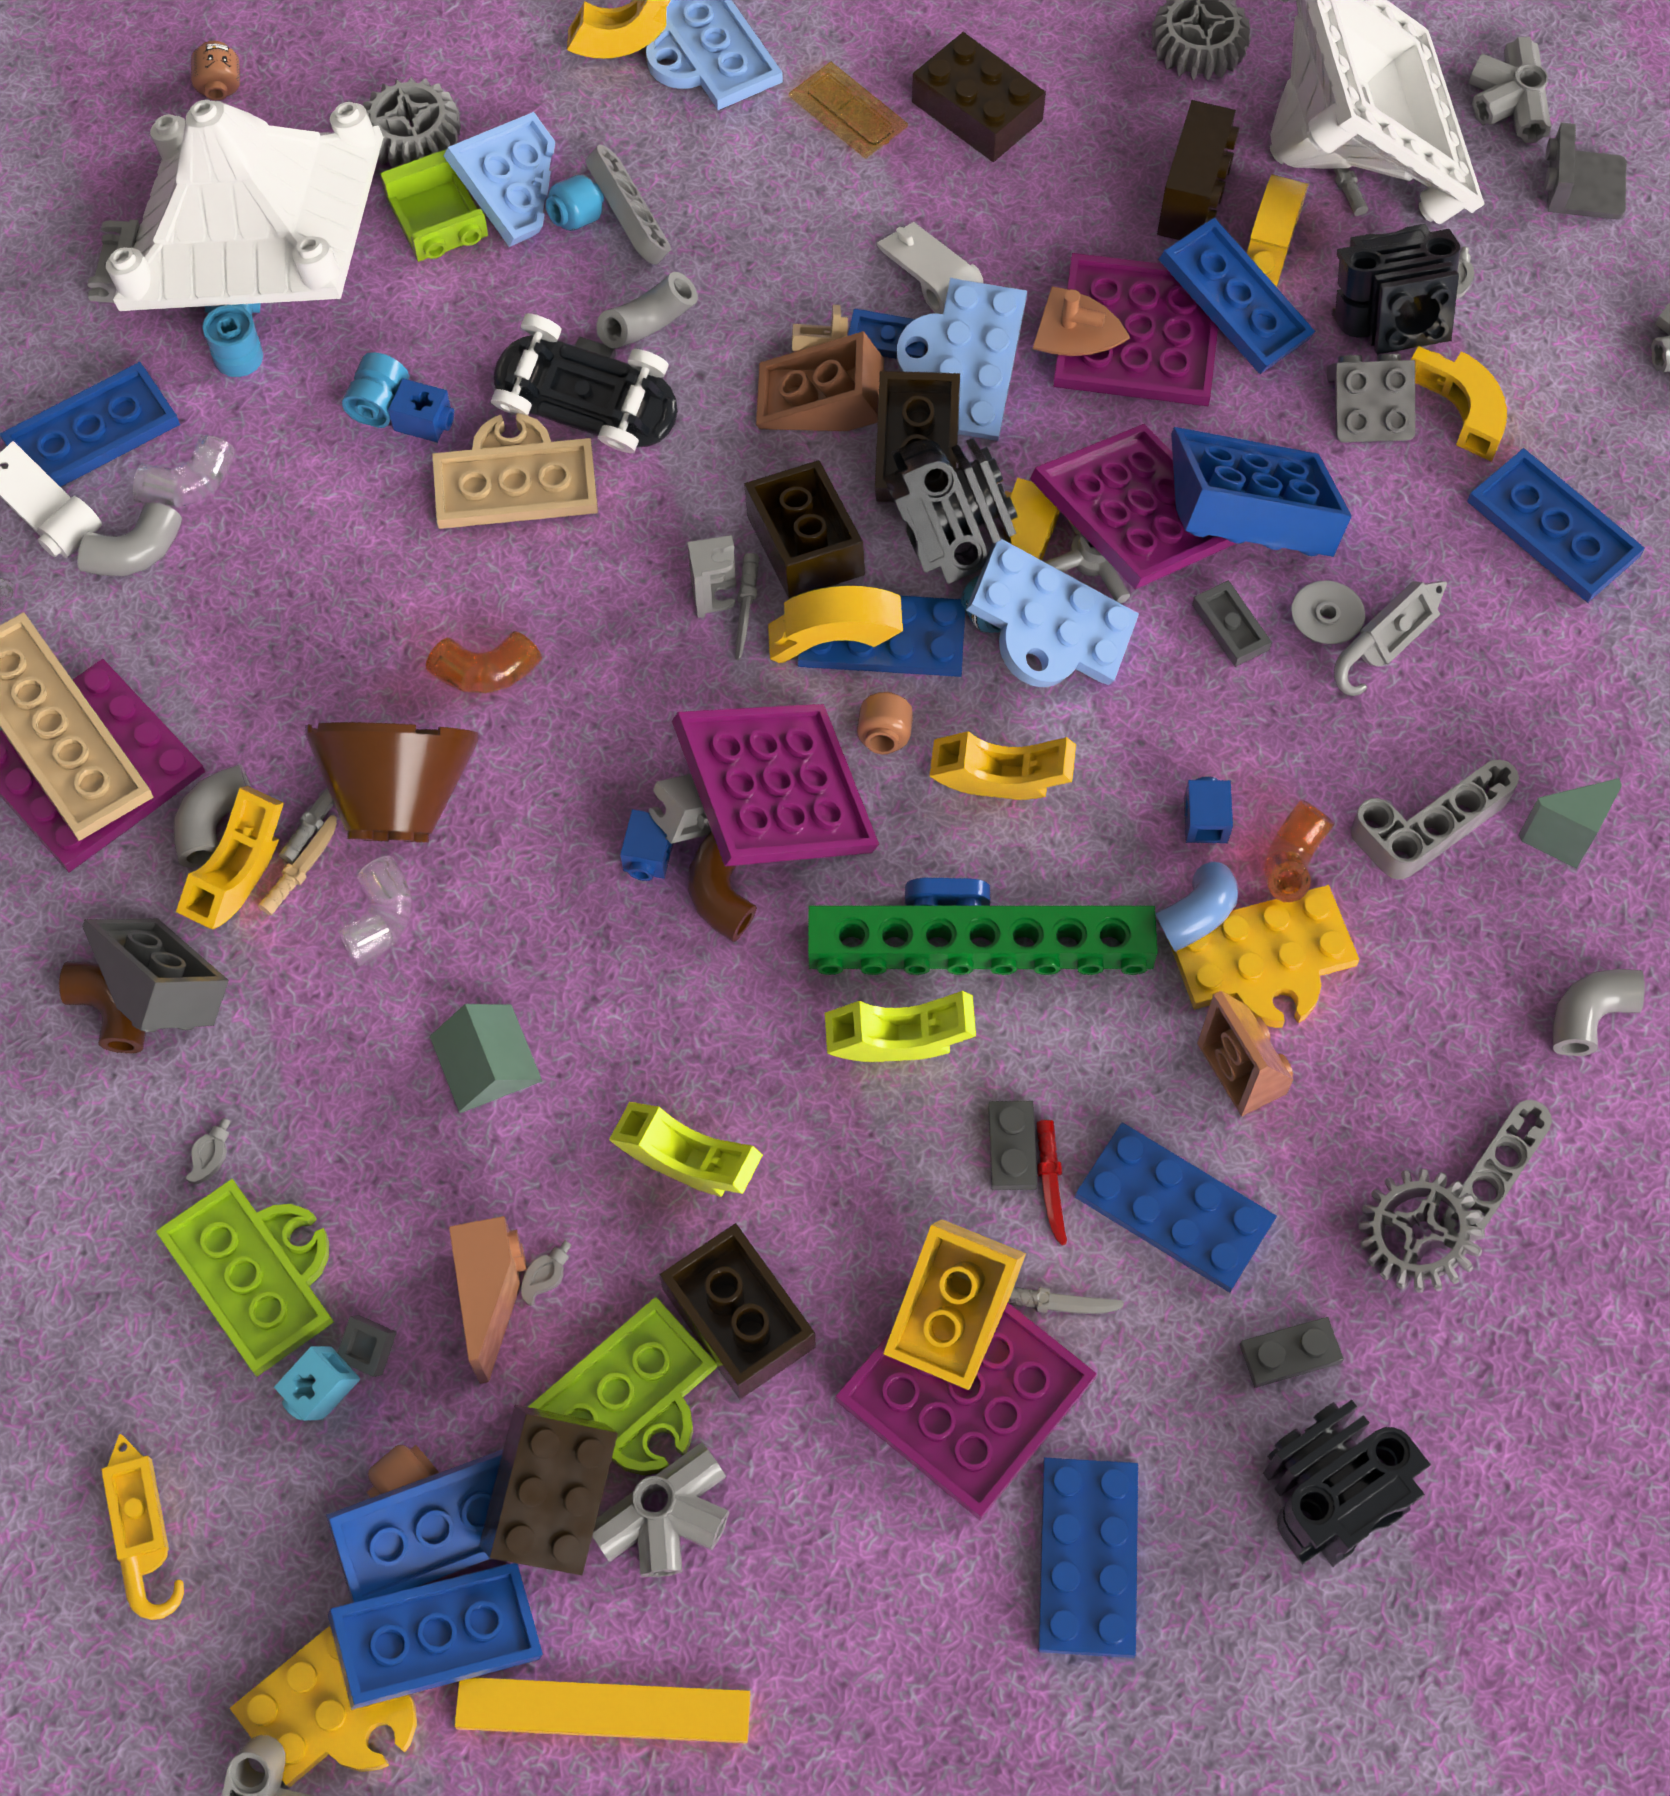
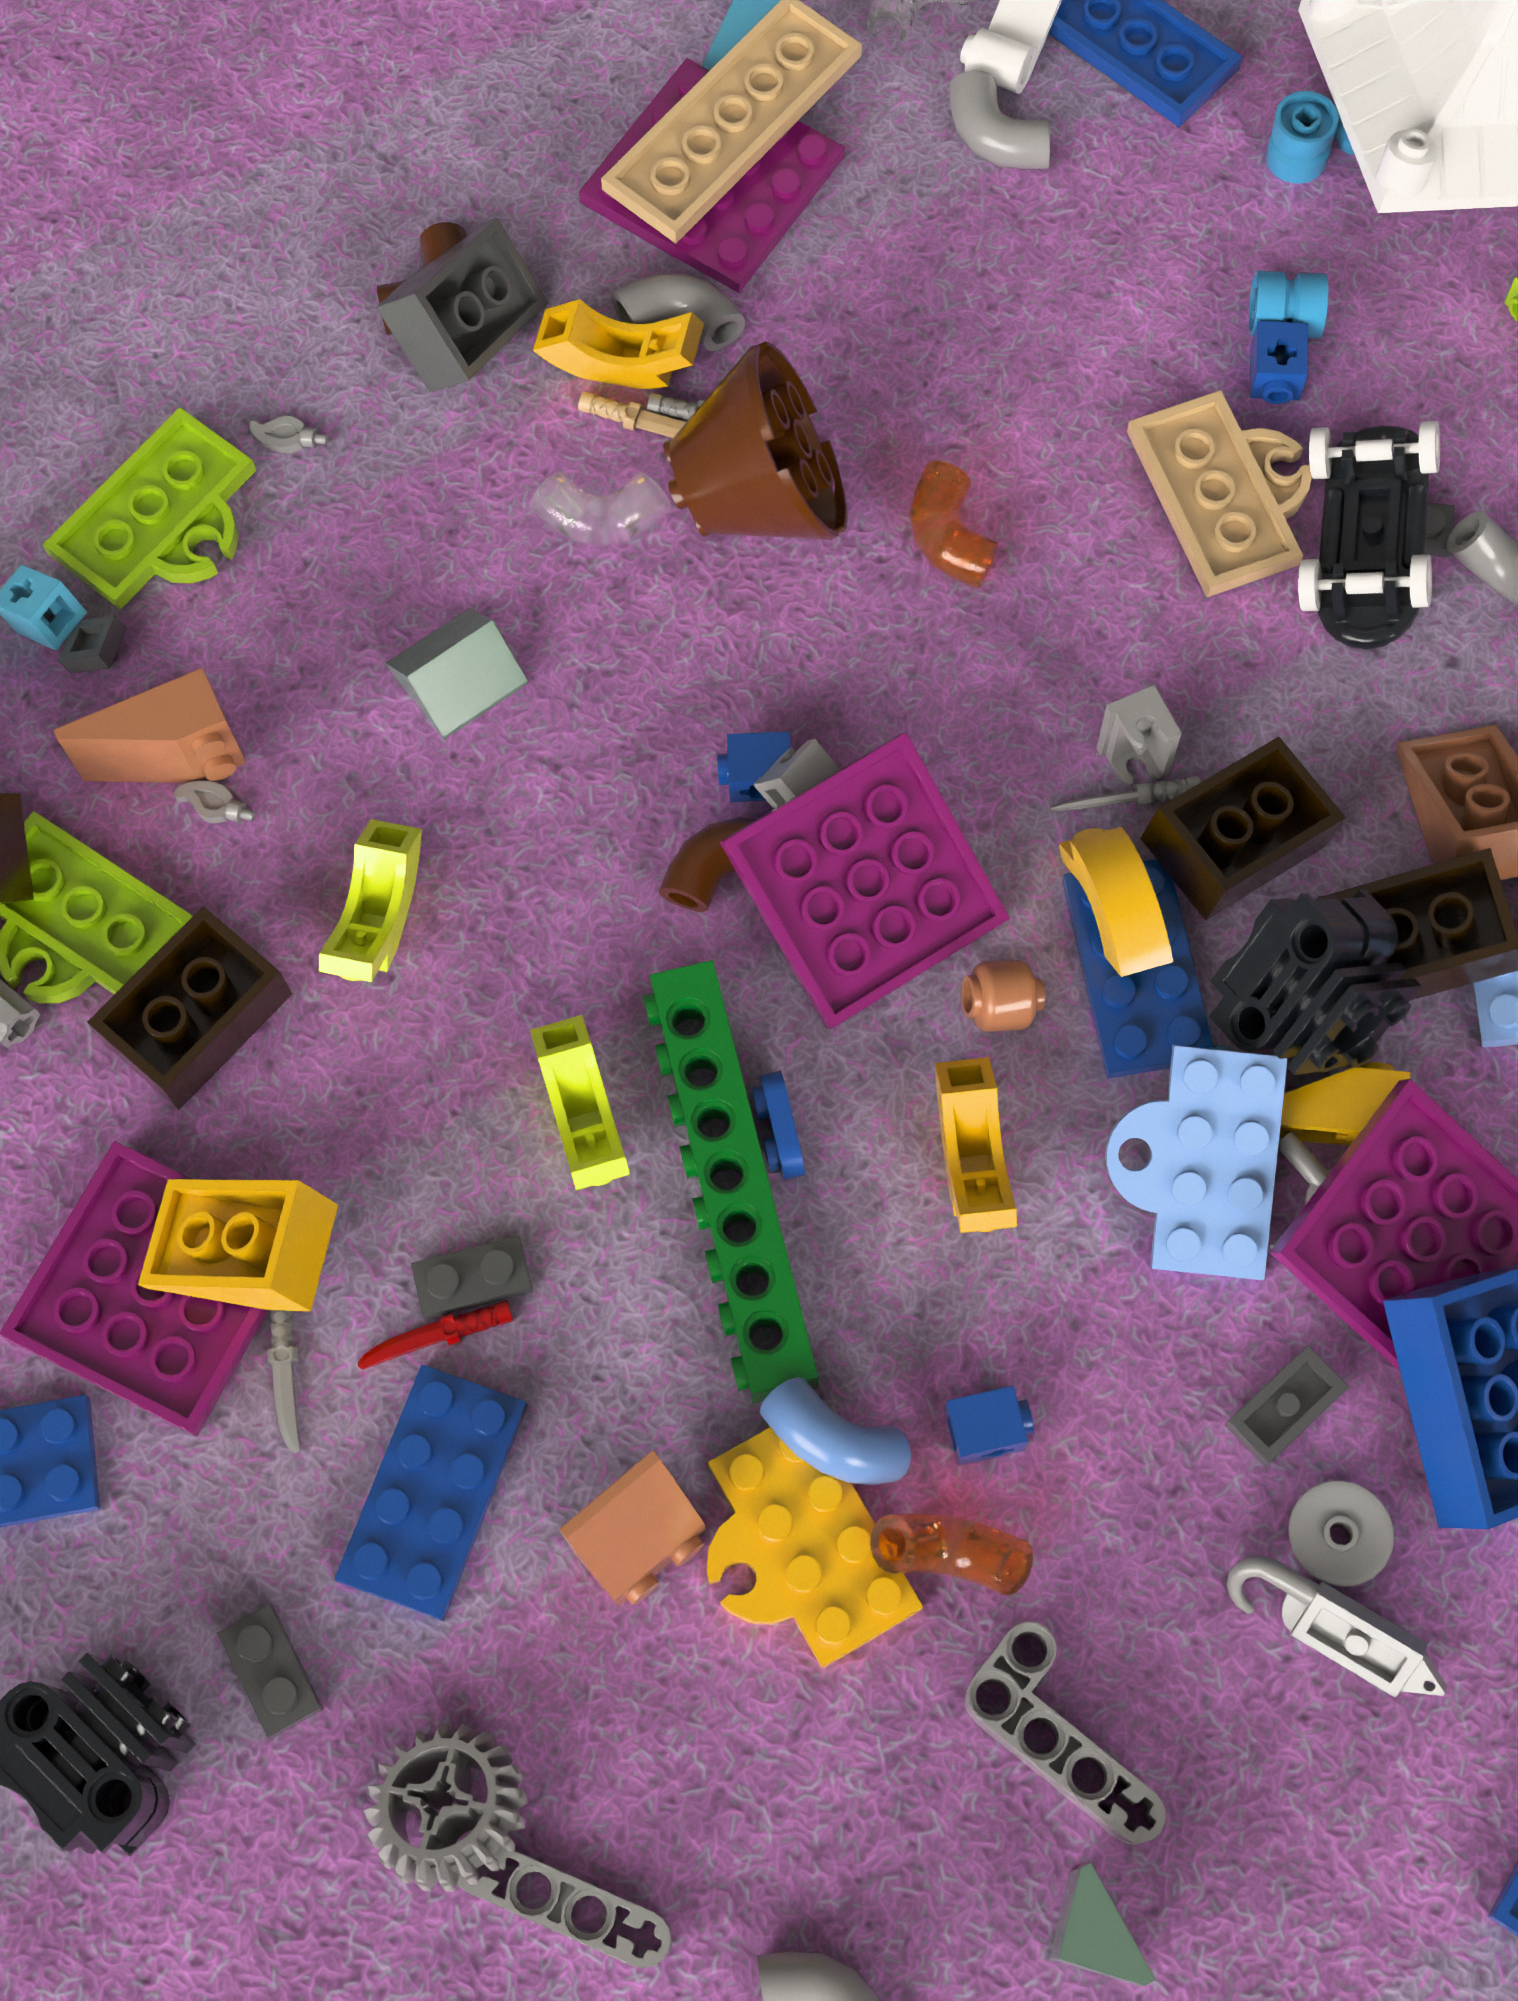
camera: 80 degrees right, 5 degrees up
(188, 482) = (1097, 155): clear cylinder -> none

